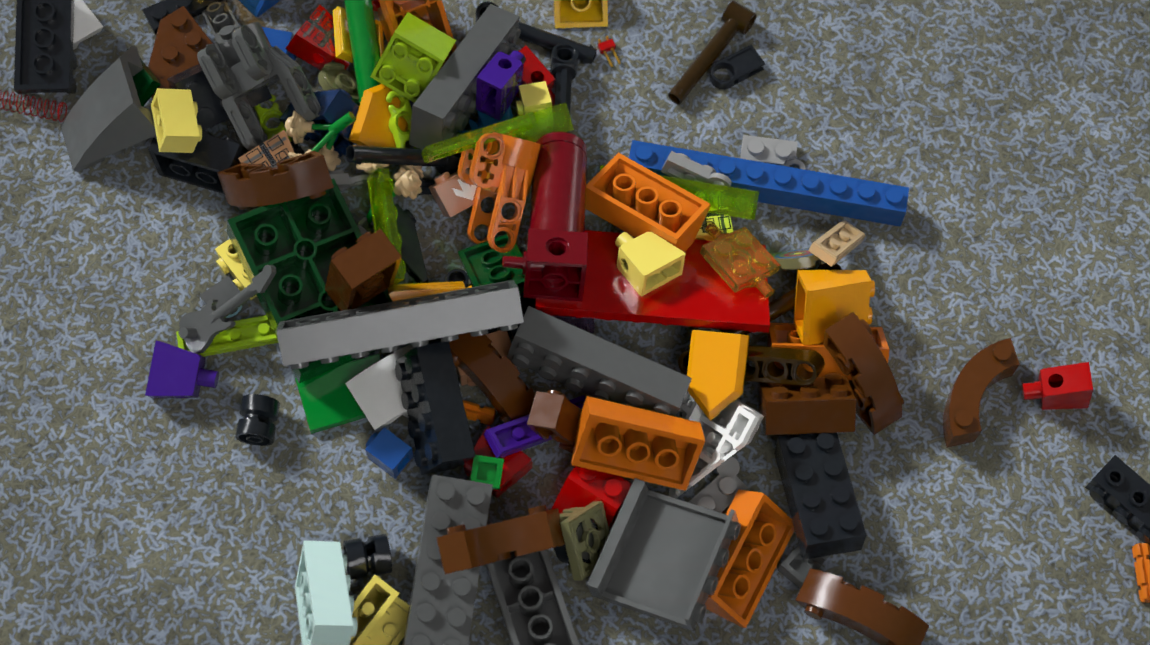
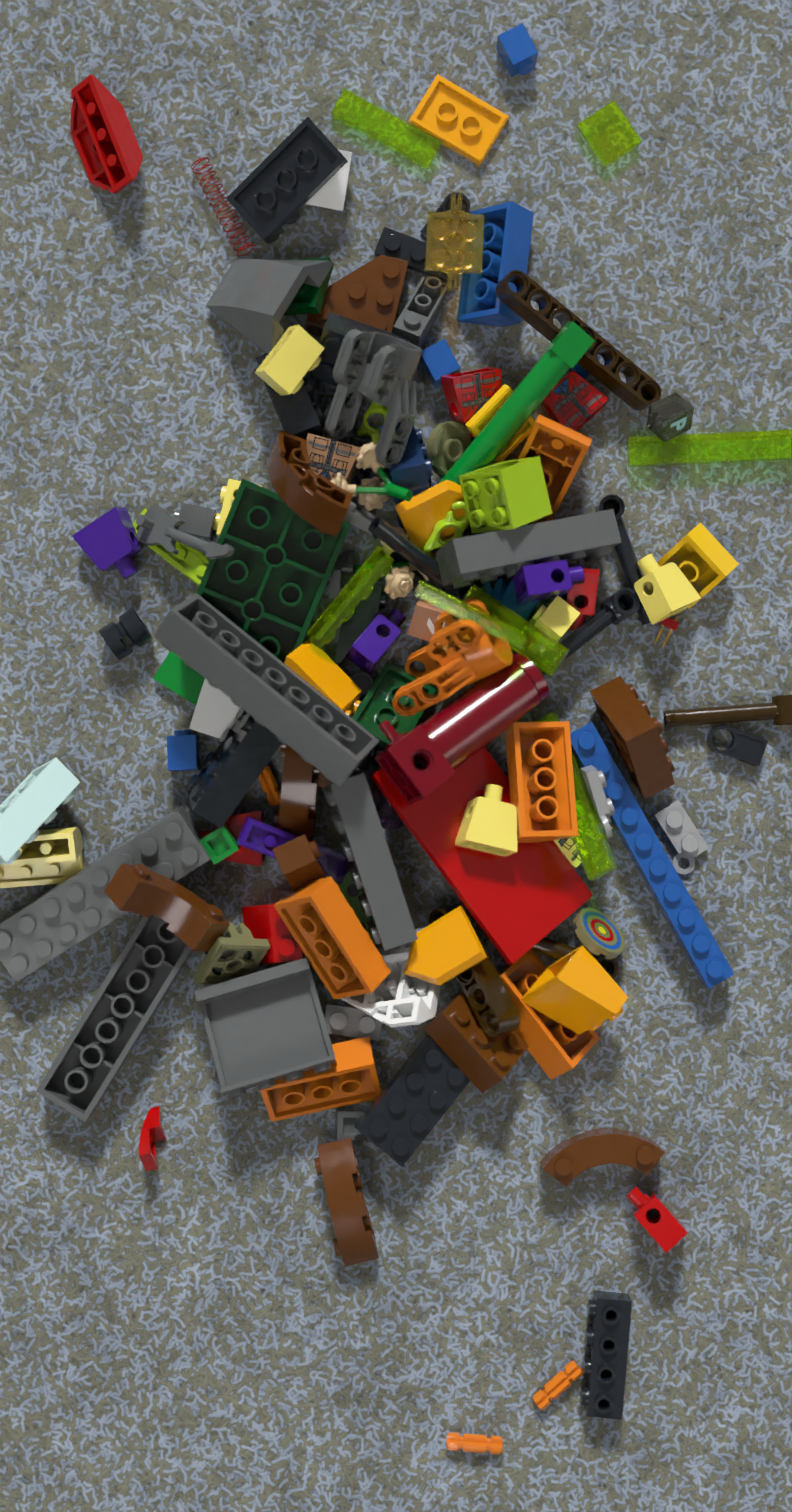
camera: 50 degrees right, 20 degrees up
(362, 271) = (281, 624): reddish brown brick -> none
(368, 556) = (83, 800): black wheel -> none
(436, 237) = (370, 647): none -> dark purple torso
(587, 24) = (663, 589): none -> light yellow torso
(669, 119) = (635, 736): none -> reddish brown brick
(740, 259) = (554, 892): clear yellow plate -> none
(837, 242) = (636, 954): tan tile -> none
(859, 355) = (543, 1048): reddish brown brick -> none

